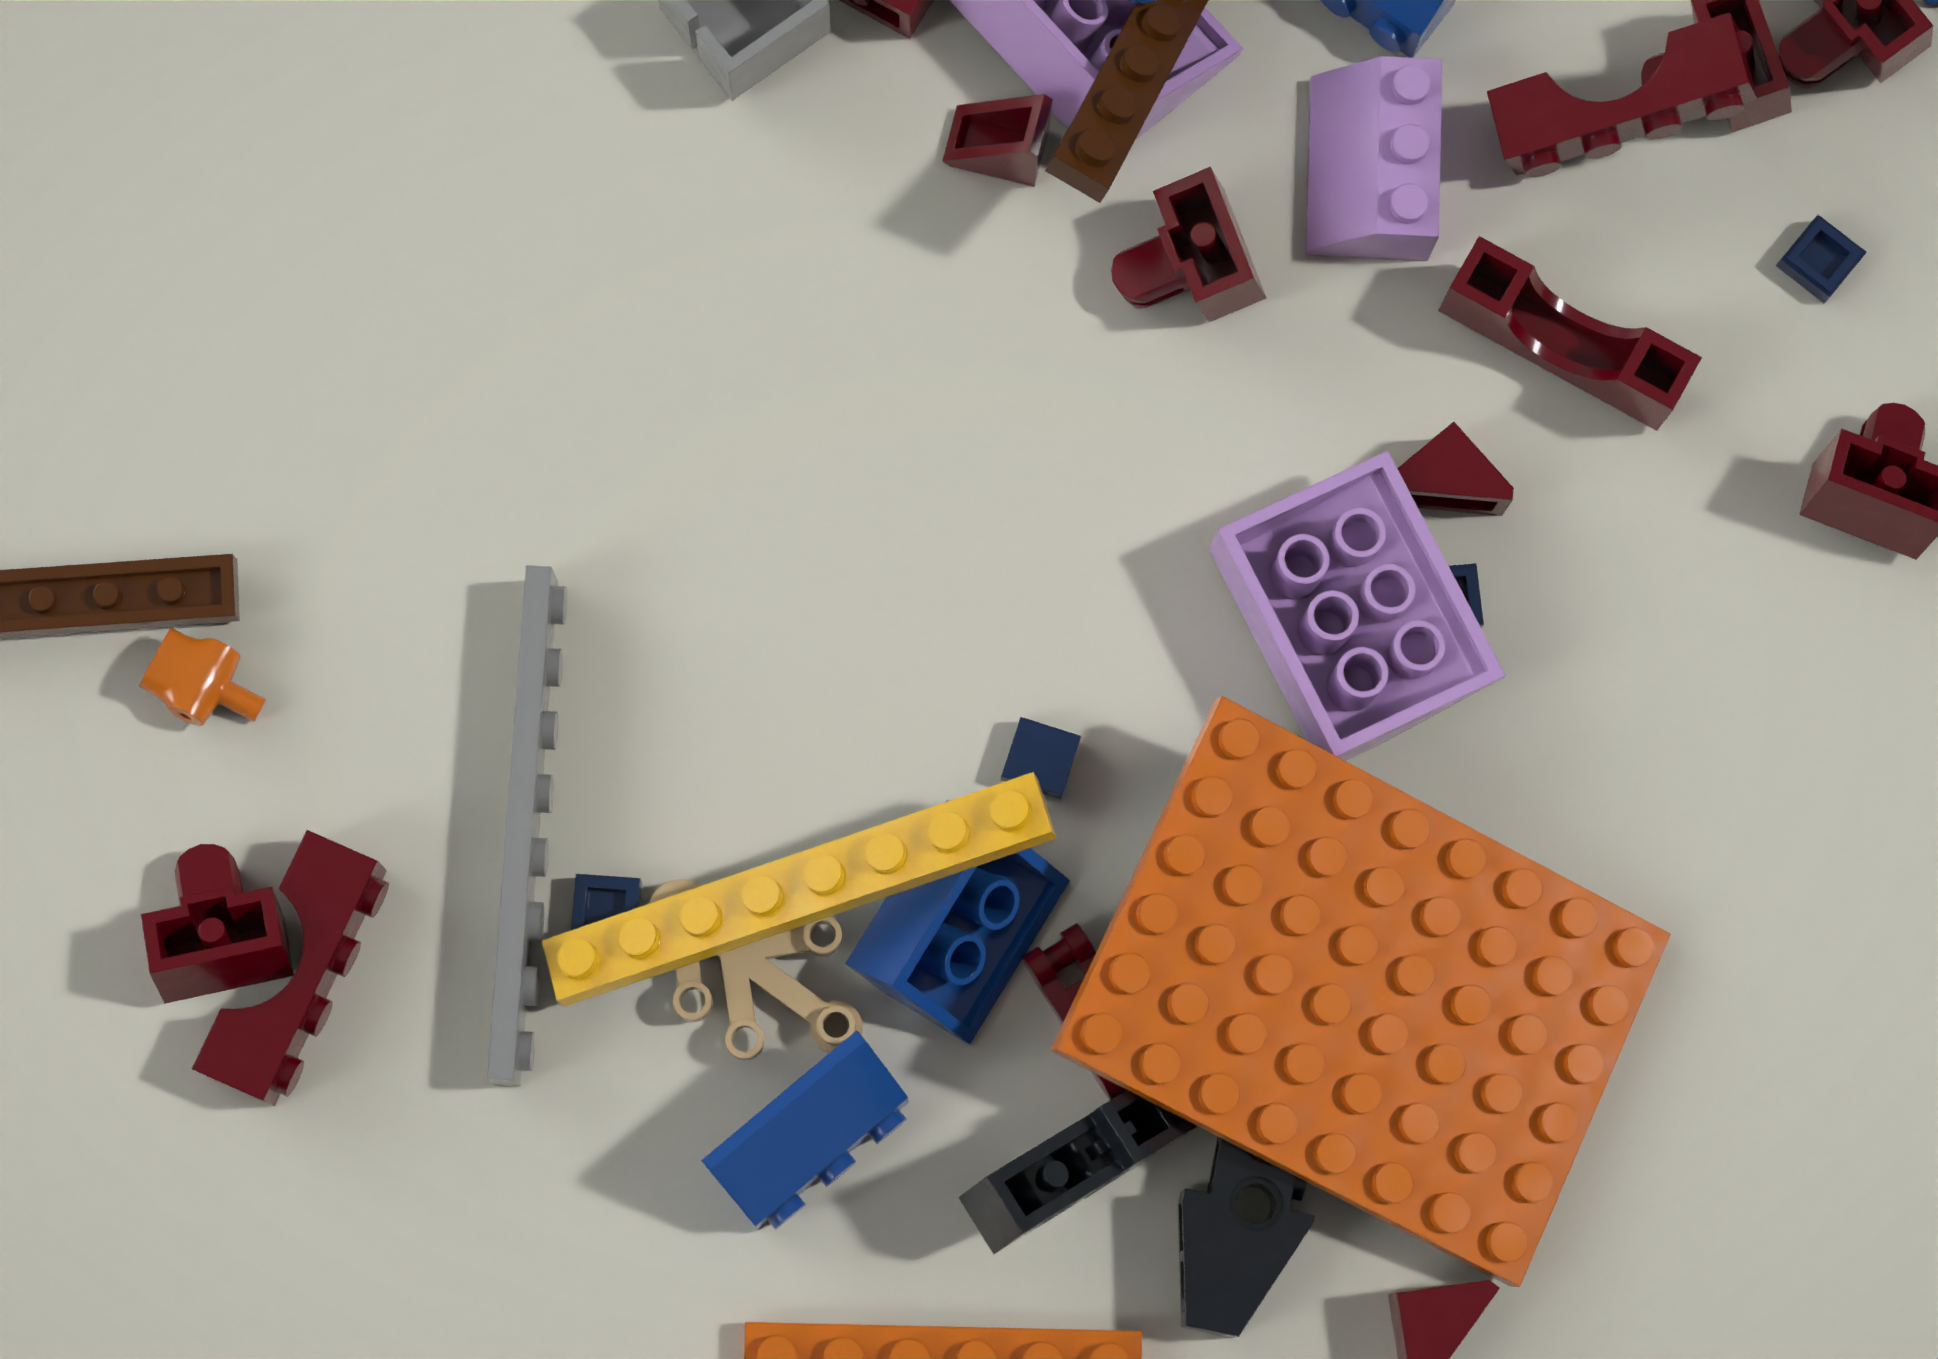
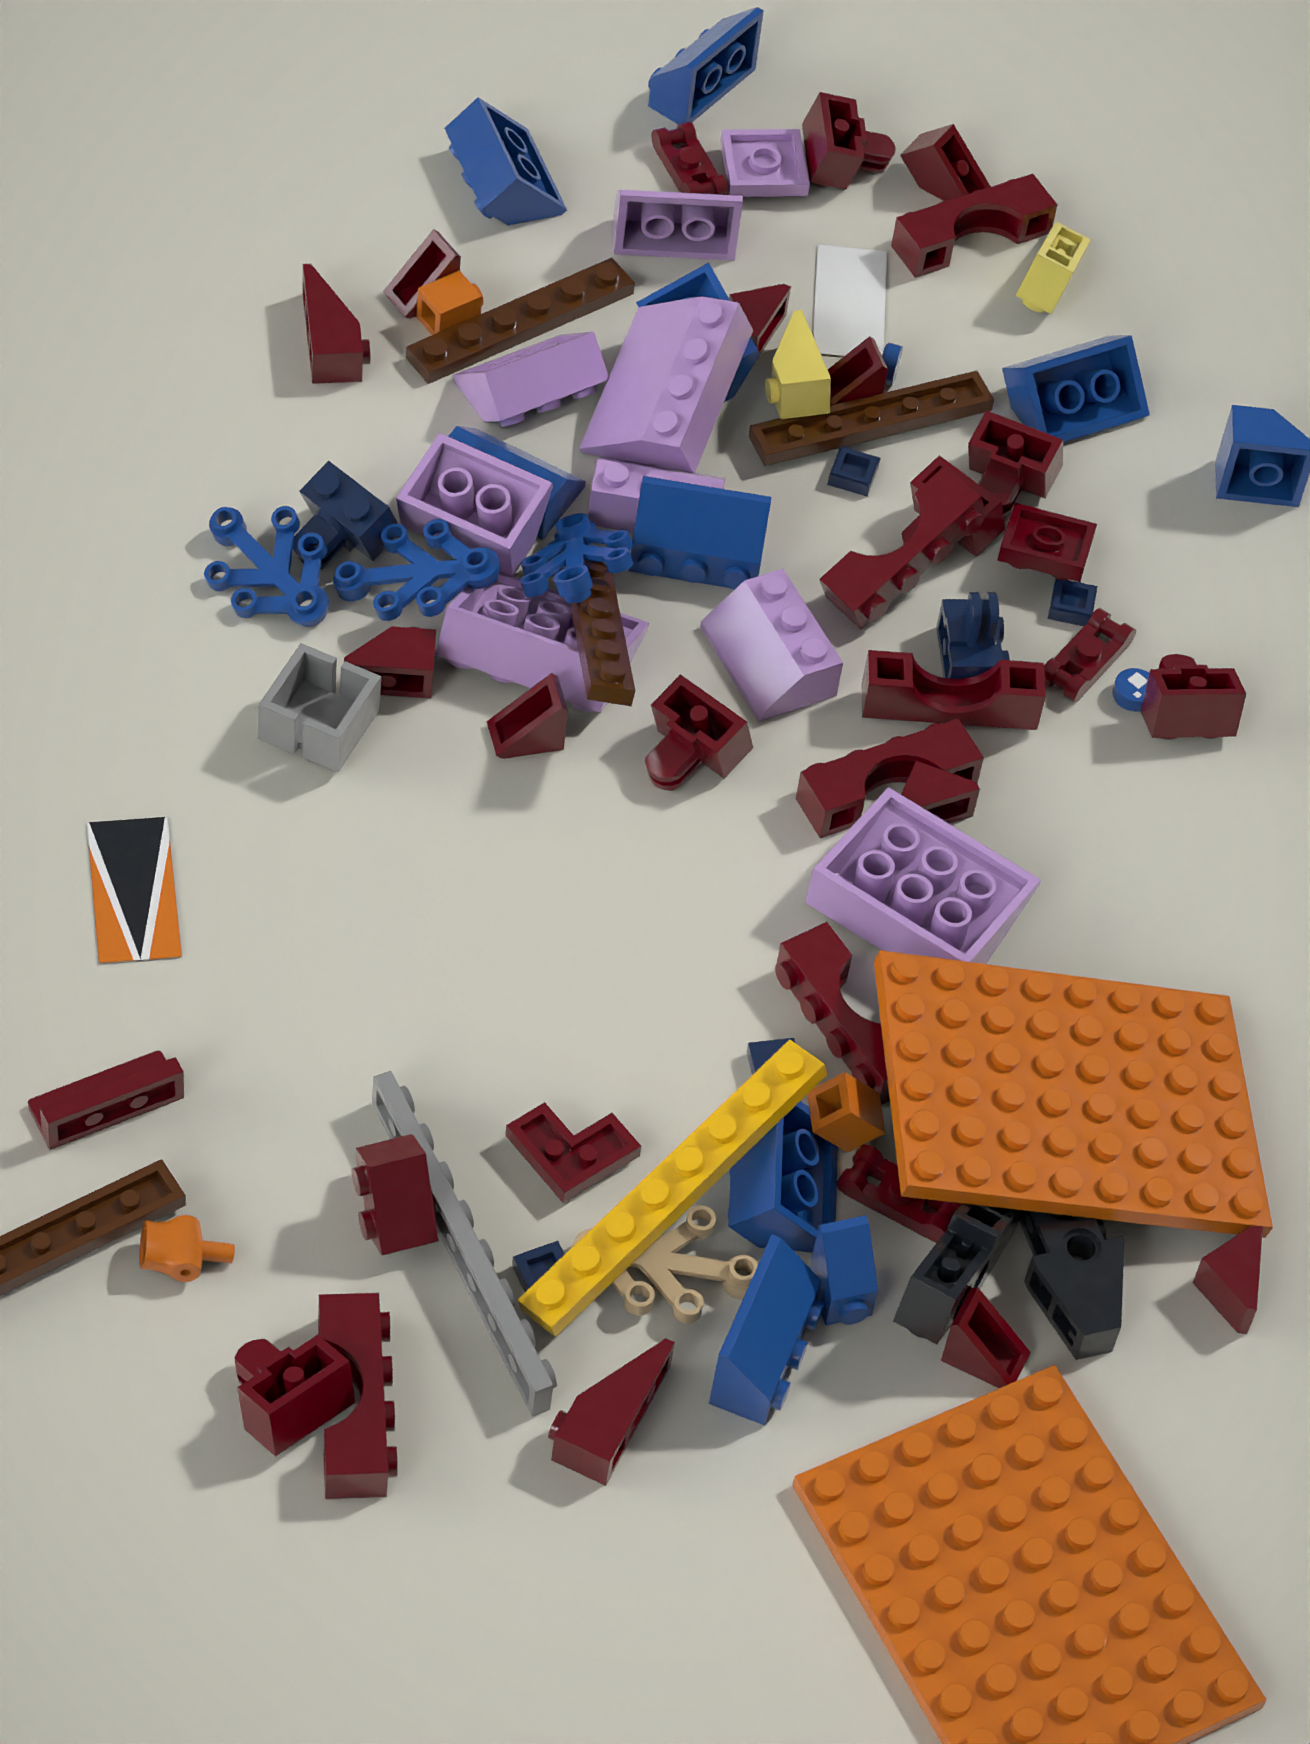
camera: 30 degrees left, 25 degrees down
(220, 432) = (107, 1098): none -> dark red panel
(405, 155) = (133, 890): none -> sticker
(463, 736) = (395, 1194): none -> dark red brick
(563, 1142) = (608, 1414): none -> dark red slope
(712, 778) = (567, 1160): none -> dark red plate
(944, 1100) = (847, 1270): none -> blue slope
(1073, 1268) = (984, 1343): none -> dark red slope
(1077, 878) = (846, 1112): none -> orange brick
(1161, 657) = (815, 970): none -> dark red arch
(1337, 409) = (836, 790): none -> dark red arch
(1640, 267) = (970, 635): none -> dark blue brick
(1790, 350) = (1087, 655): none -> dark red plate
(1819, 423) = (1130, 688): none -> blue tile
(1834, 159) = (1047, 542): none -> dark red plate

